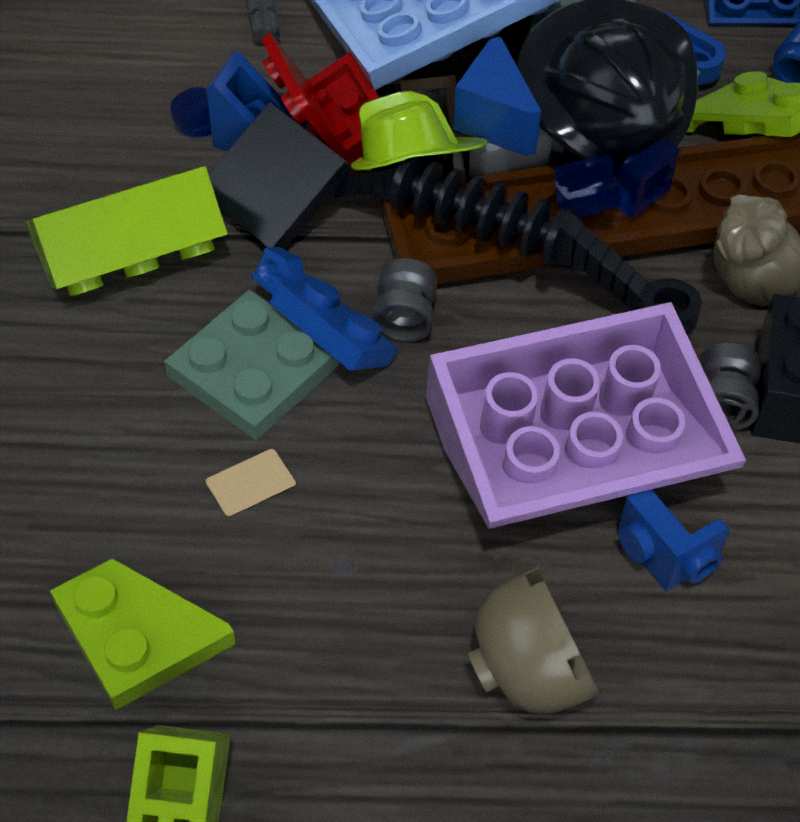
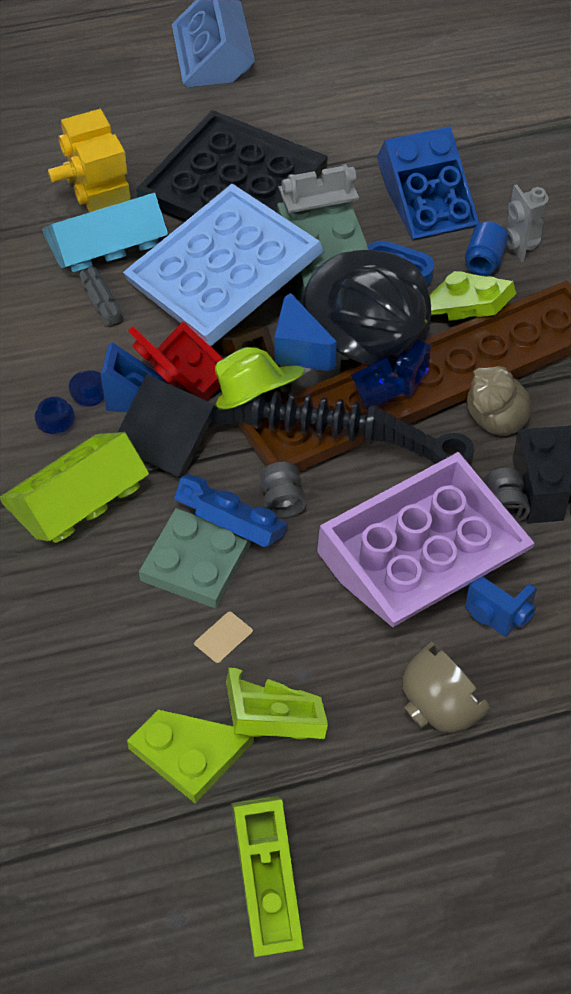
camera: 15 degrees left, 0 degrees up
(138, 134) = (54, 415): none -> clear blue plate
(275, 604) = (274, 709): none -> lime wing

